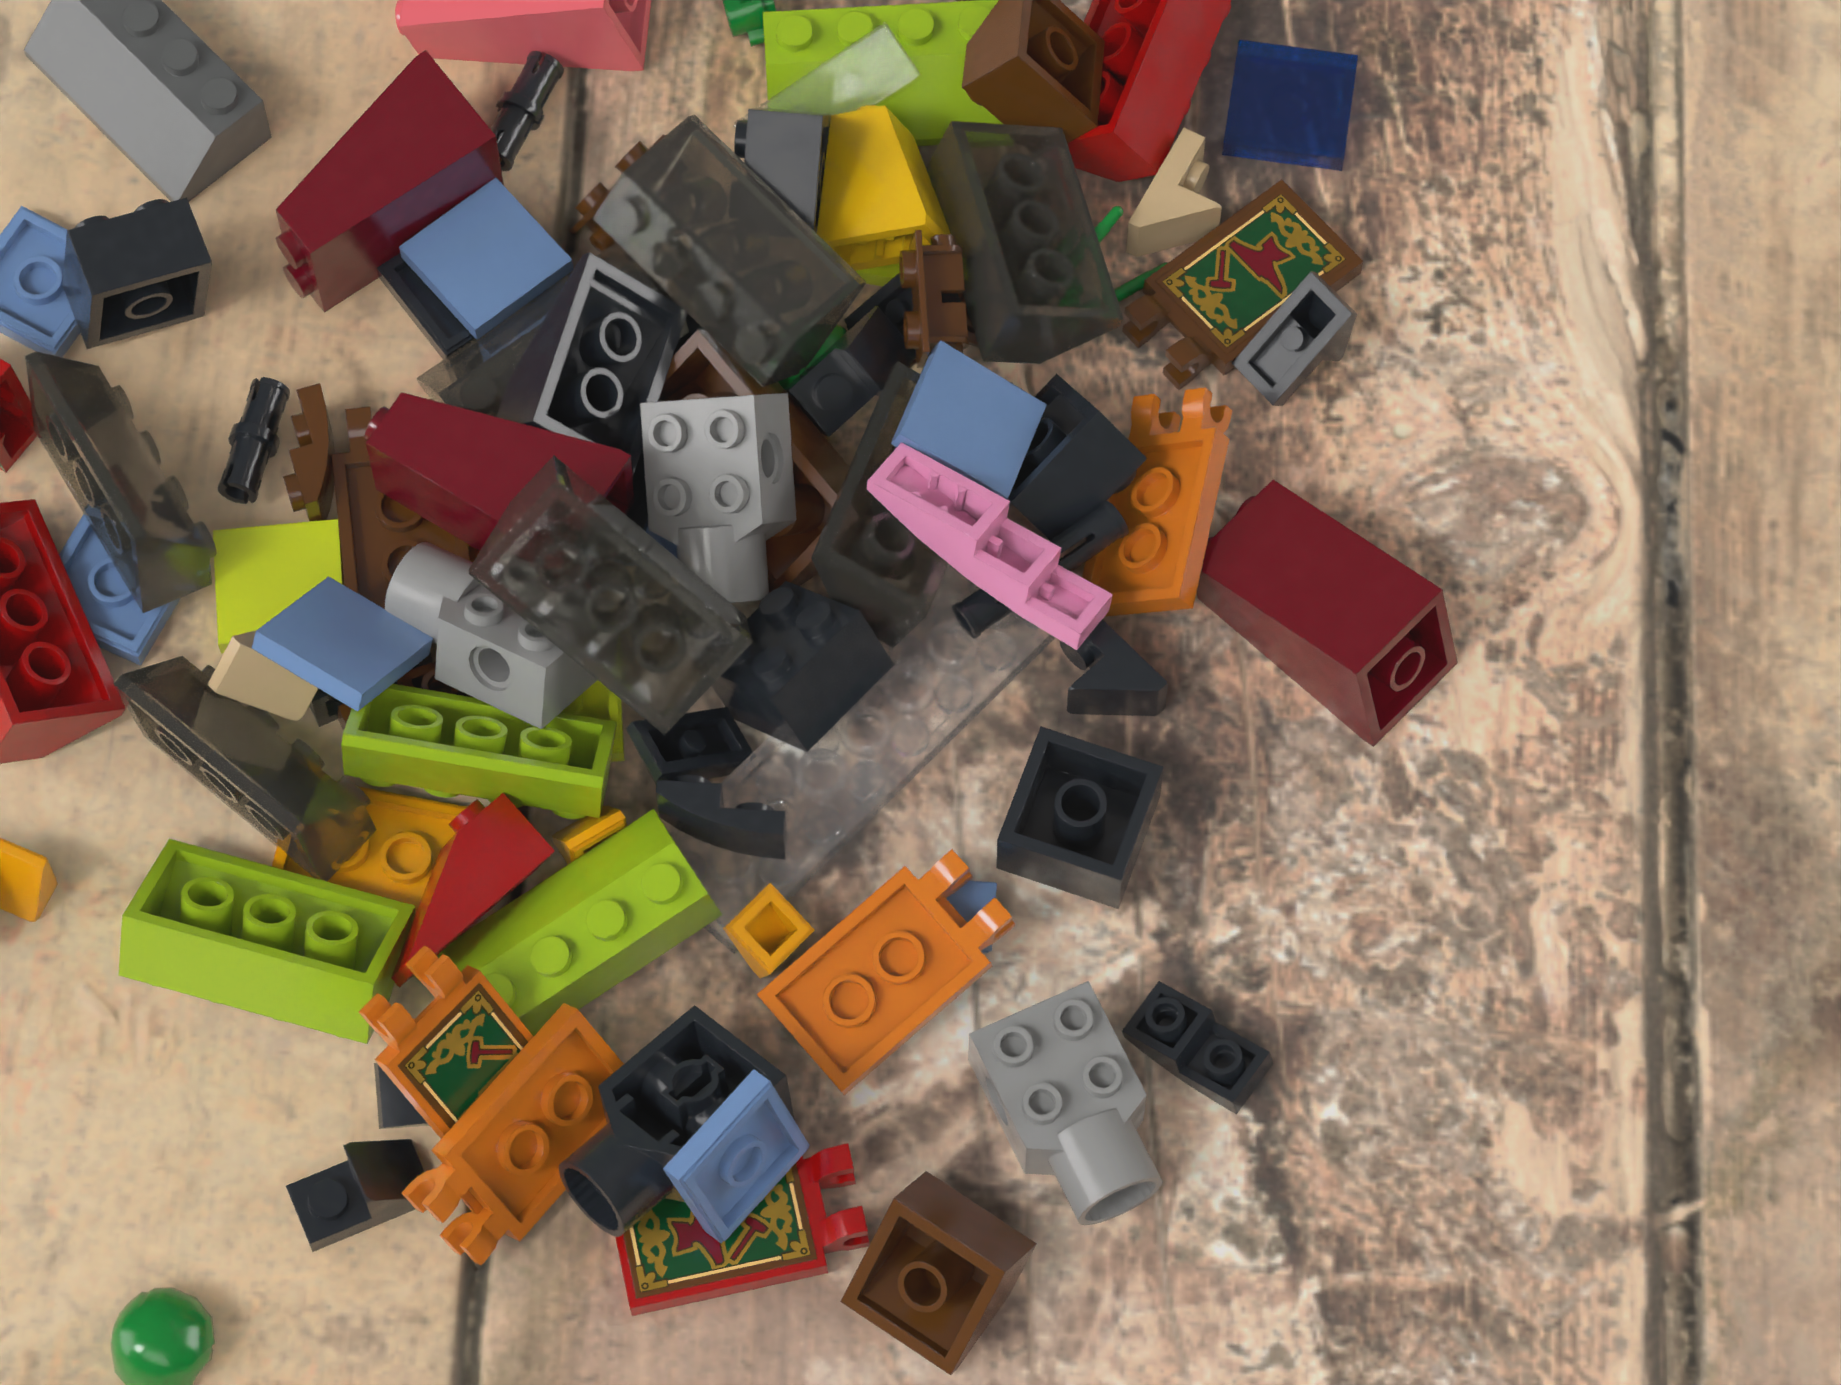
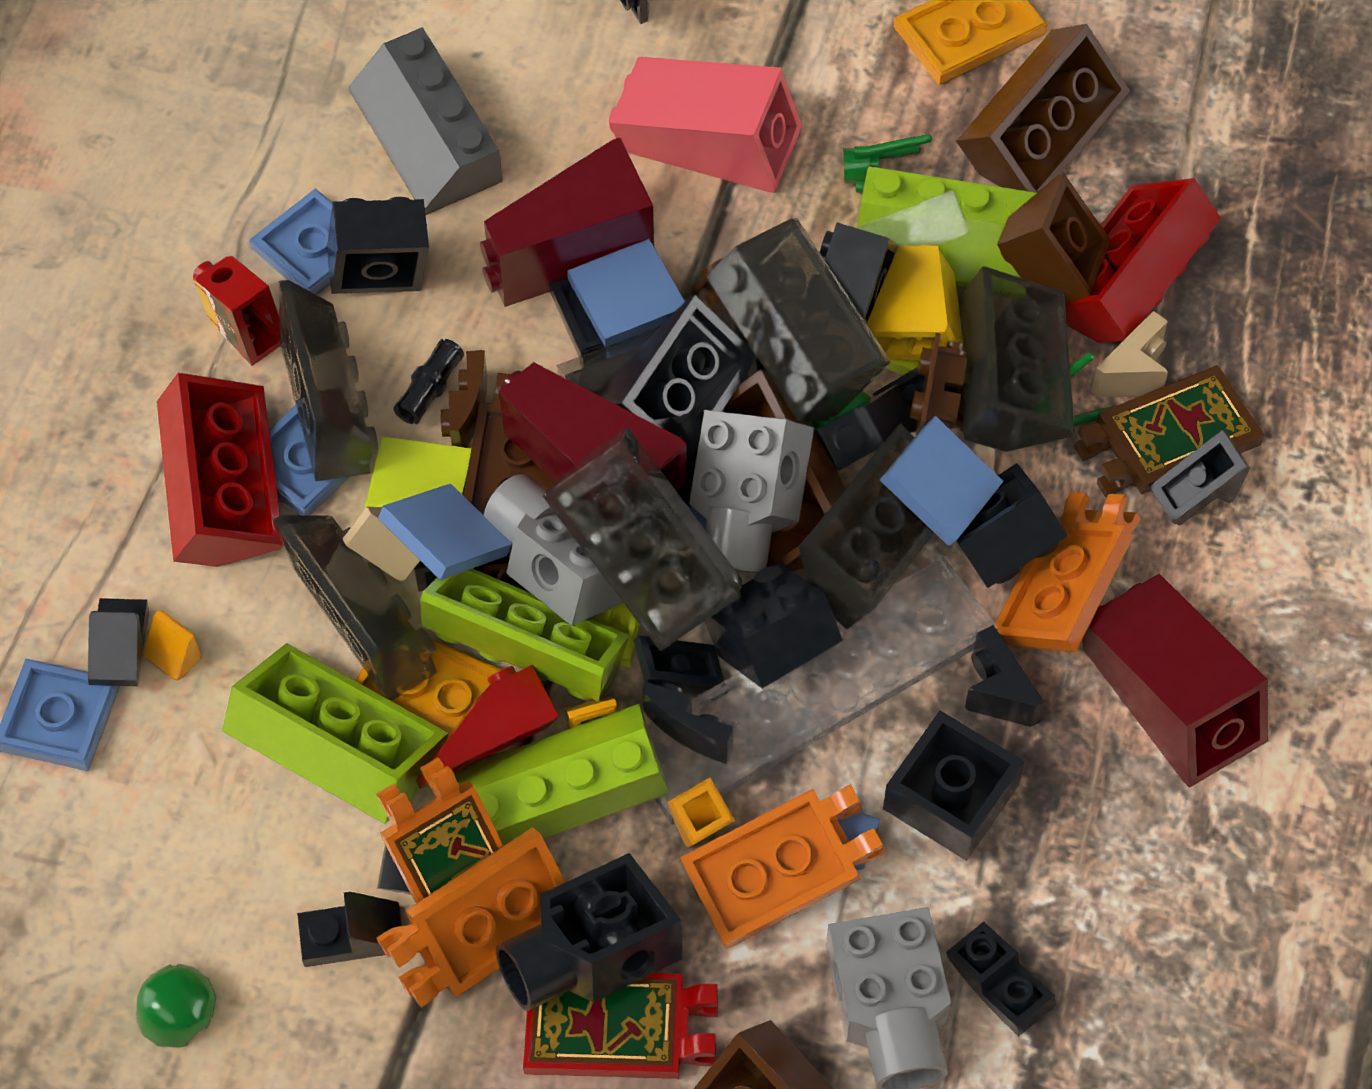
camera: 15 degrees right, 5 degrees down
(523, 105) = (682, 198): black pin -> none
(737, 1156) = (629, 972): medium blue tile -> none
(973, 535) = (925, 561): bright pink slope -> none
(1099, 528) = (917, 617): black pin -> none
(1290, 105) = (1236, 315): clear blue tile -> none

